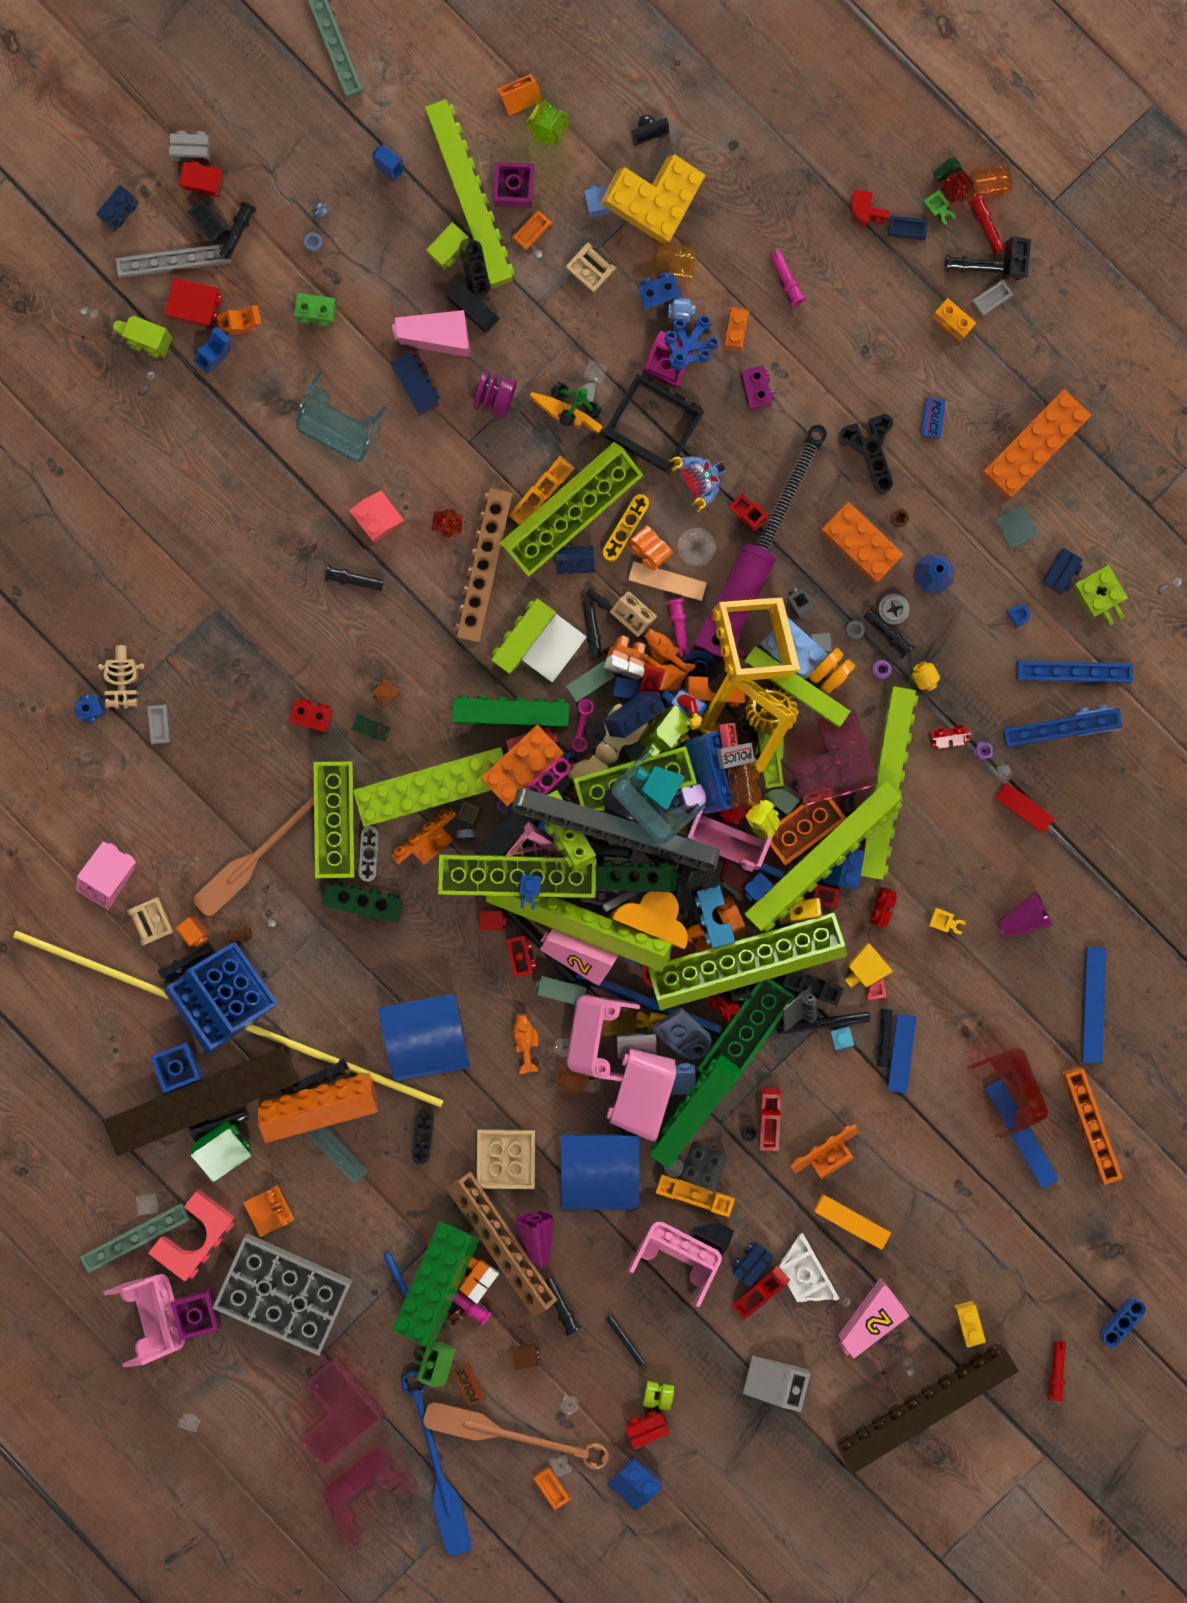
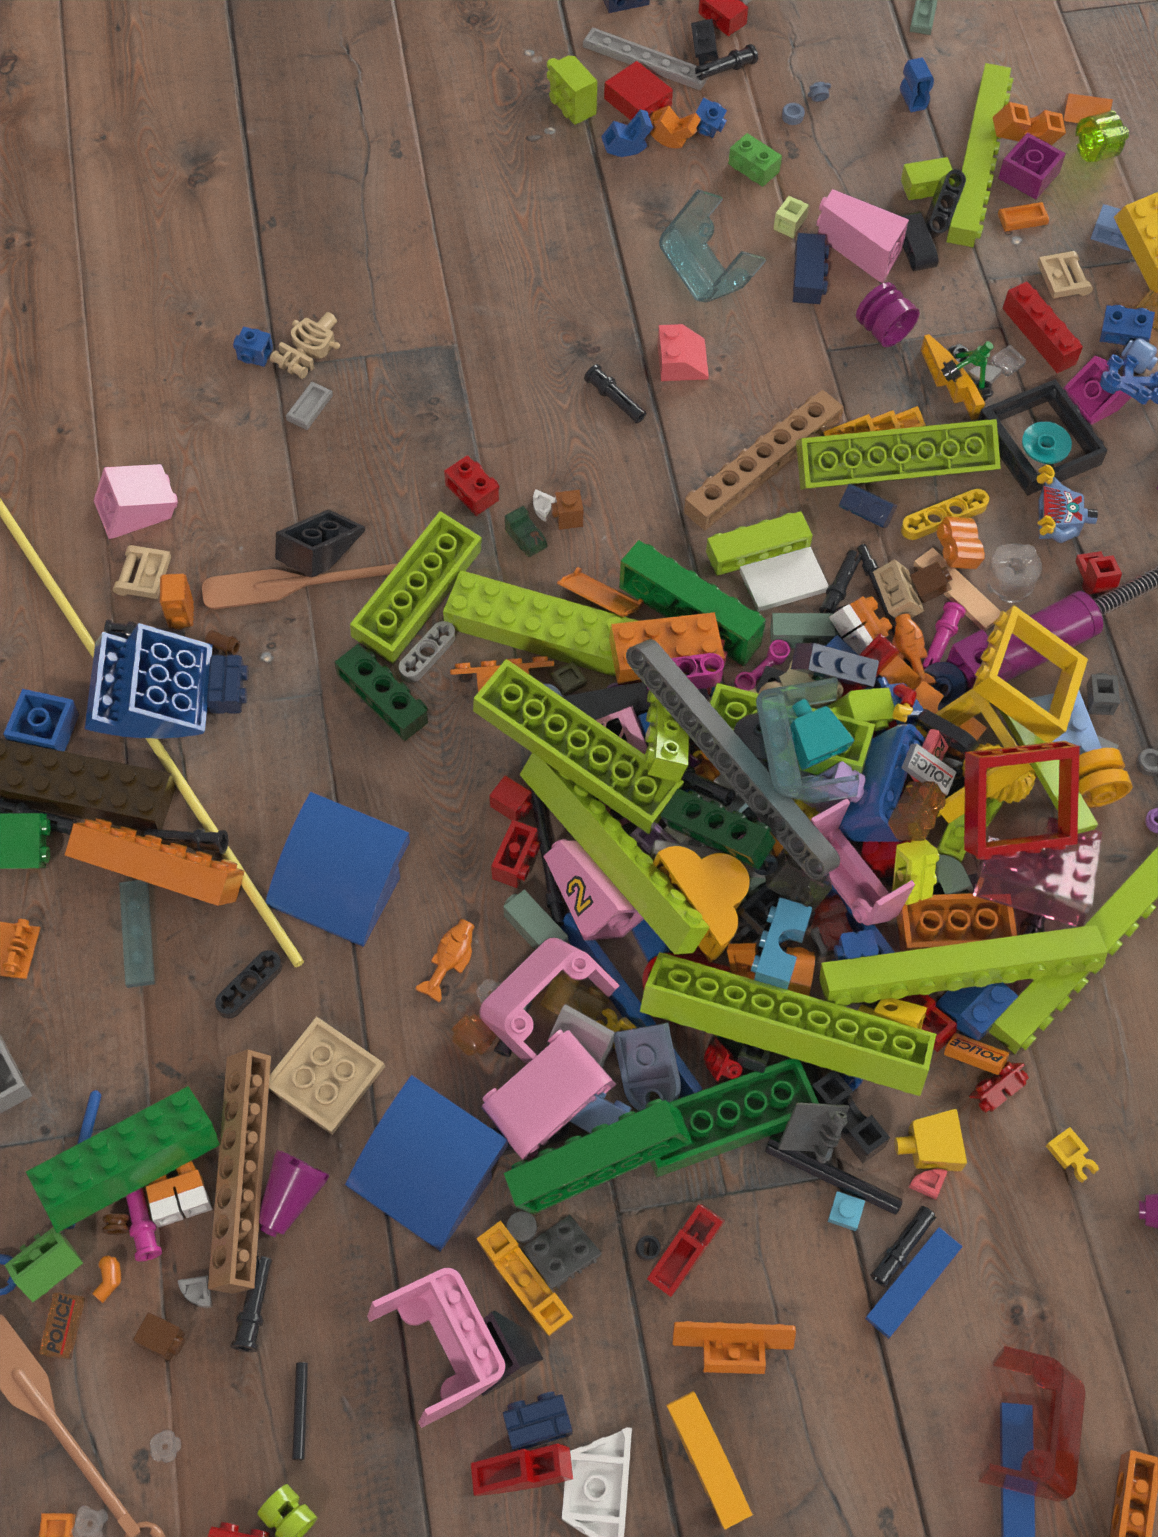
camera: 30 degrees right, 25 degrees down
(245, 825) = (316, 542): none -> black slope
(253, 294) = (711, 117): none -> blue brick
(265, 962) = (226, 684): none -> dark blue brick
(365, 696) = (542, 504): none -> white tile
(369, 337) = (790, 216): none -> yellowish green brick
(447, 523) = (753, 397): clear red brick -> none
(448, 742) = (600, 593): none -> orange piece
(474, 1343) = (111, 1277): none -> orange arm
(492, 152) = (1014, 122): none -> orange arch
(525, 1318) = (196, 1291): none -> light grey tile
(529, 887) = (583, 758): blue plate -> none
(602, 329) = (1042, 327): none -> red brick
(649, 592) = (932, 581): none -> reddish brown brick
(664, 427) = (1050, 436): none -> teal dish
(729, 717) = (953, 735): none -> black beam
(782, 730) = (975, 798): none -> red window
(860, 898) = (976, 1053): none -> orange tile

